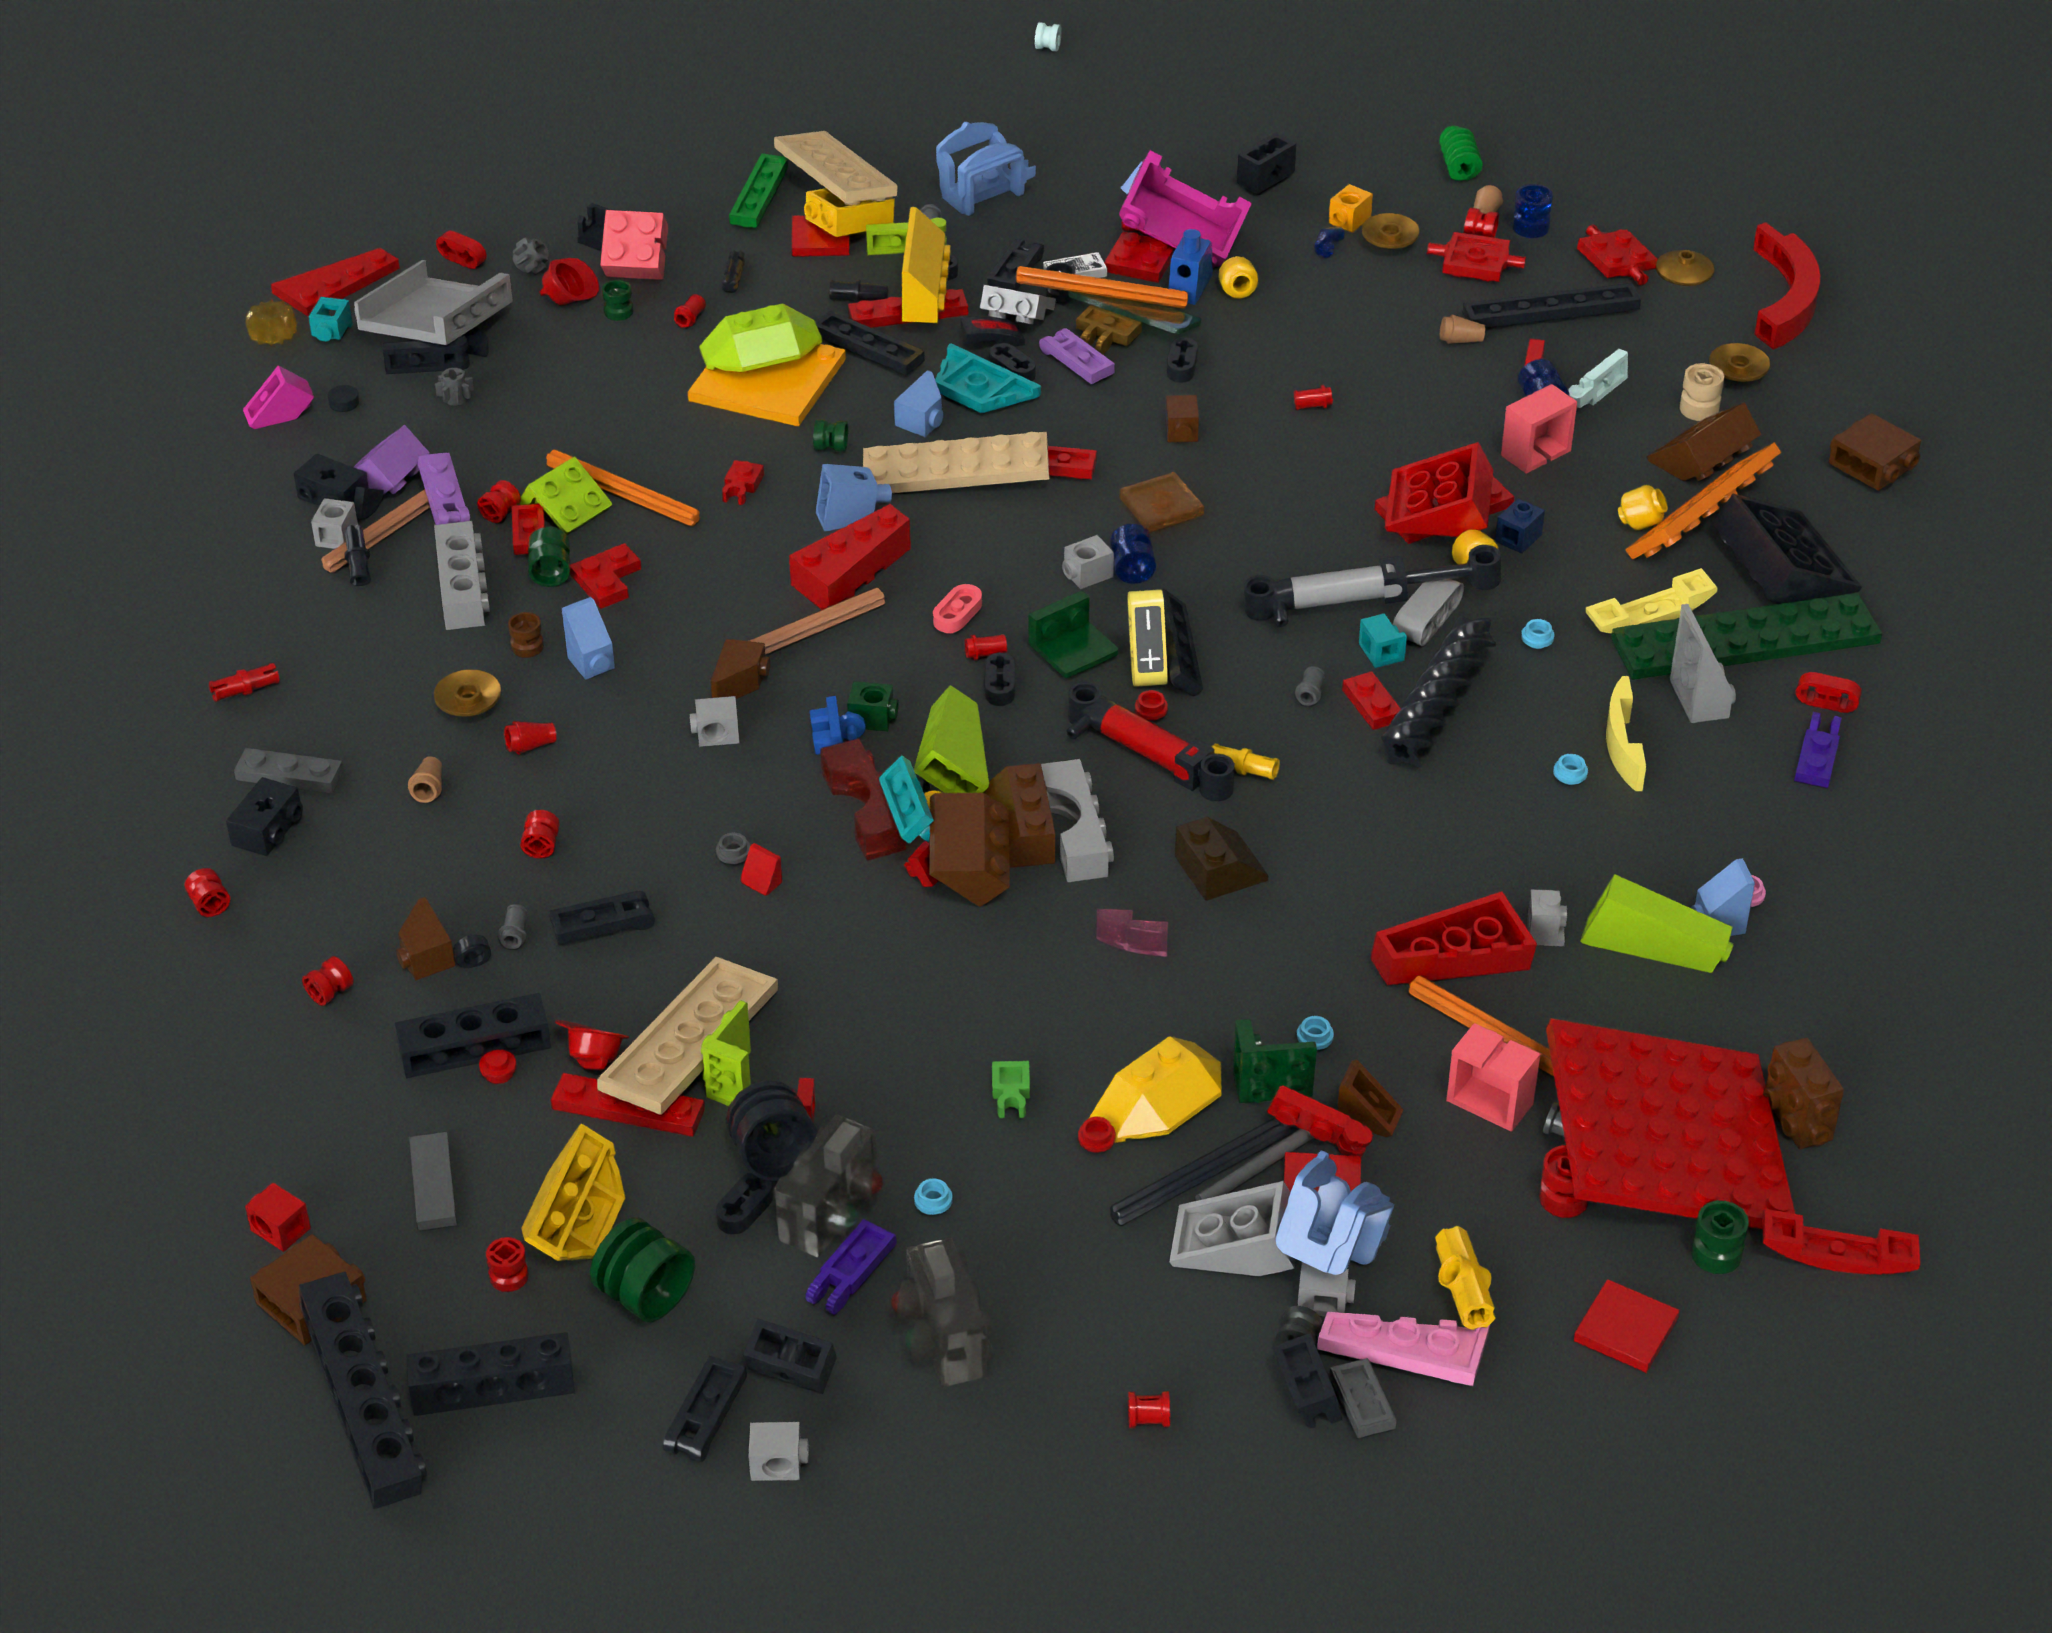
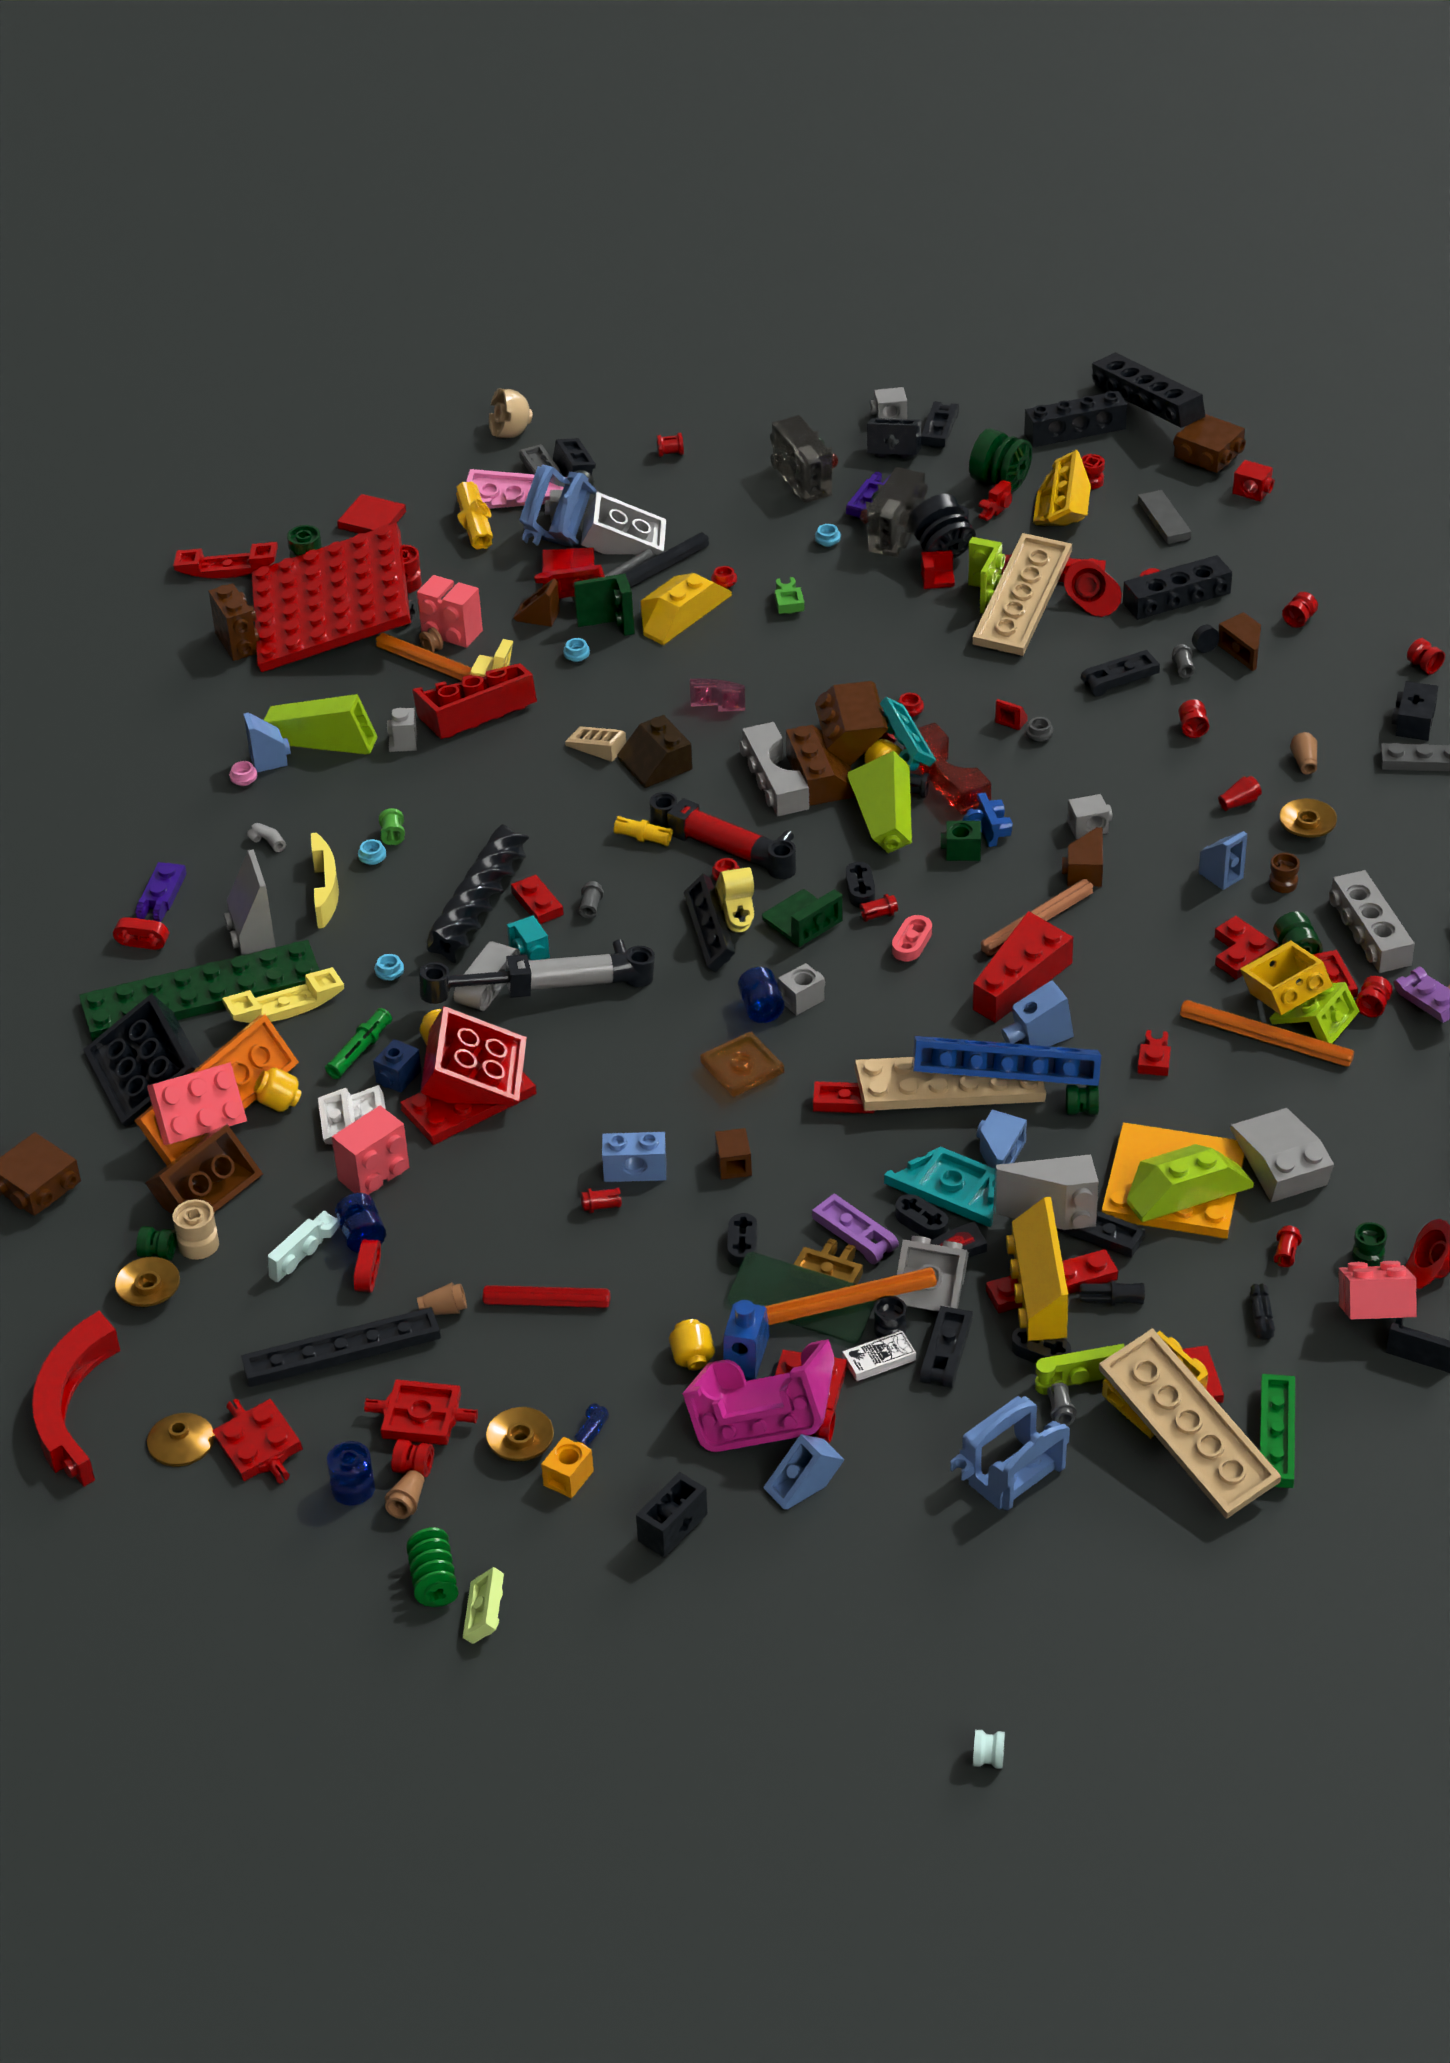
camera: 175 degrees right, 0 degrees up
(586, 524) = (1290, 964): none -> yellow window
(660, 363) = (1283, 1154): none -> light grey slope
(673, 1217) = (999, 499): none -> red plate
(824, 423) = (1006, 1060): none -> blue brick
(885, 900) = (912, 703): none -> red plate
(897, 317) = (1067, 1180): none -> light grey slope
(1277, 876) = (603, 742): none -> tan slope
(1278, 419) = (634, 1156): none -> medium blue brick
(1366, 332) = (546, 1296): none -> red axle
(1410, 1494) = (510, 414): none -> tan cylinder
(1419, 135) = (483, 1605): none -> yellowish green plate
(1430, 1002) = (501, 659): none -> light yellow panel
(1549, 796) = (391, 823): none -> bright green bush
(1556, 563) = (377, 1022): none -> green pin
(1563, 496) = (342, 1109): none -> white slope
(1702, 807) = (271, 835): none -> light grey arm
(1720, 470) = (196, 1103): none -> coral plate
(1737, 392) = (156, 1243): none -> dark green wheel

